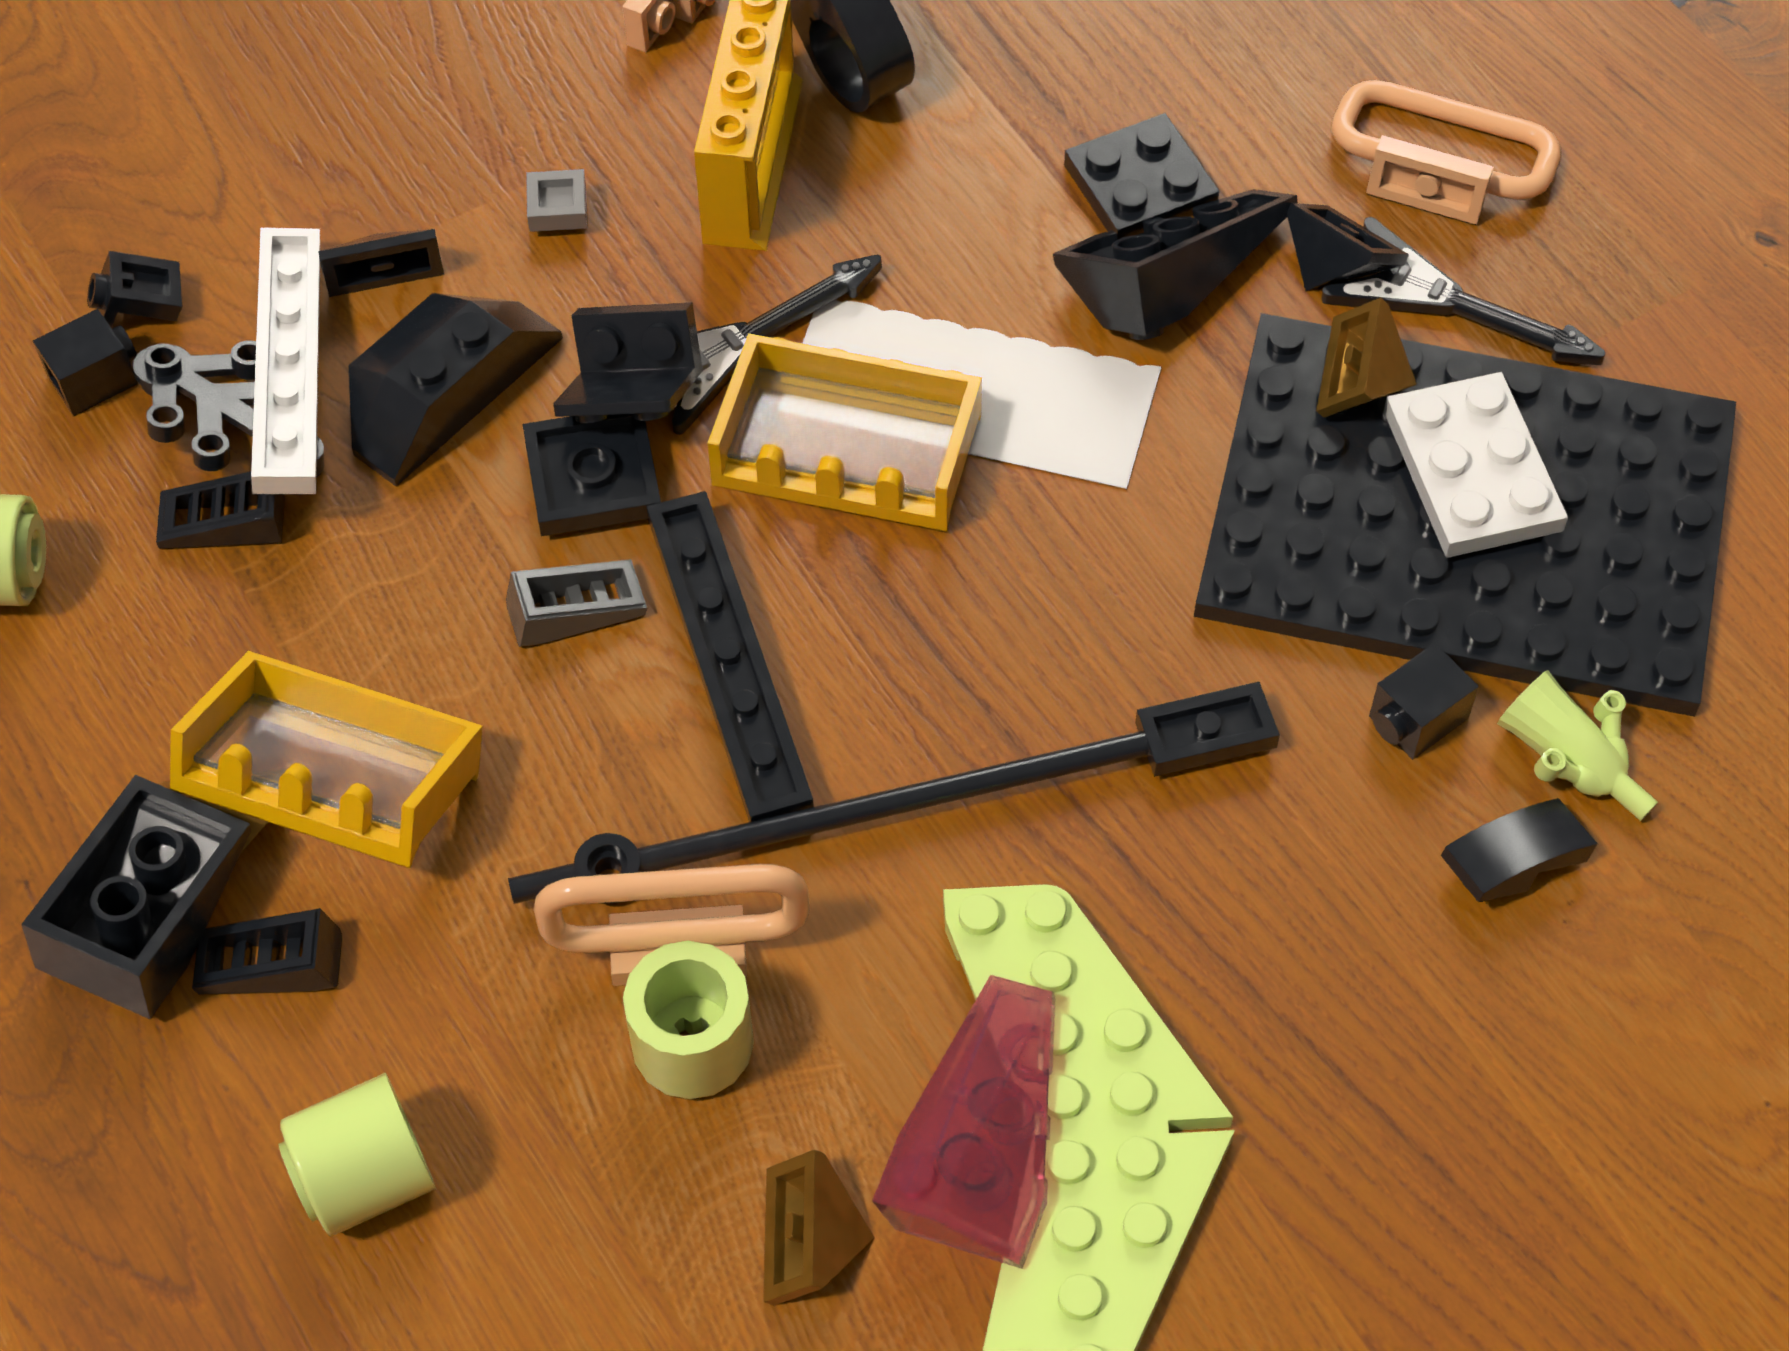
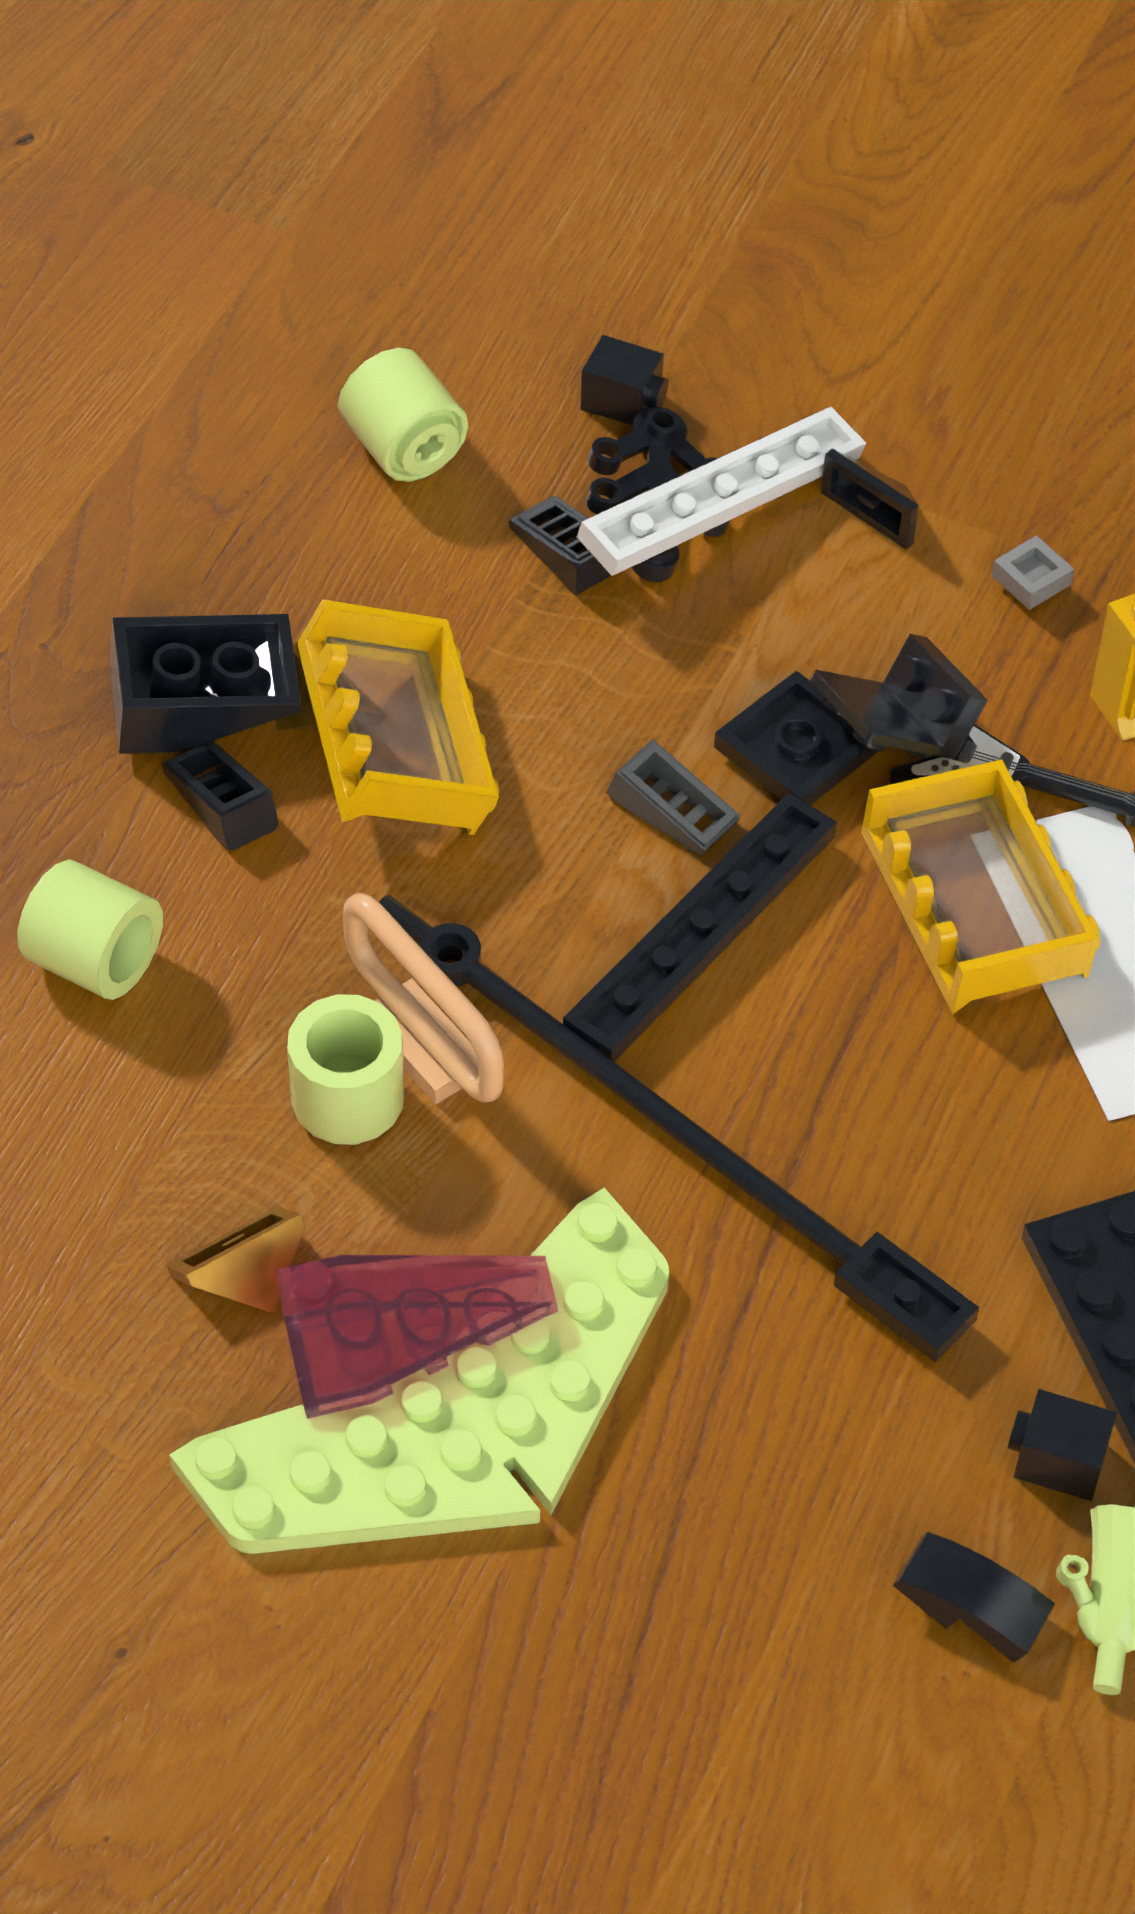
camera: 55 degrees right, 5 degrees down
(136, 287) = (713, 370): black bracket -> none
(437, 375) = (803, 597): black wedge -> none

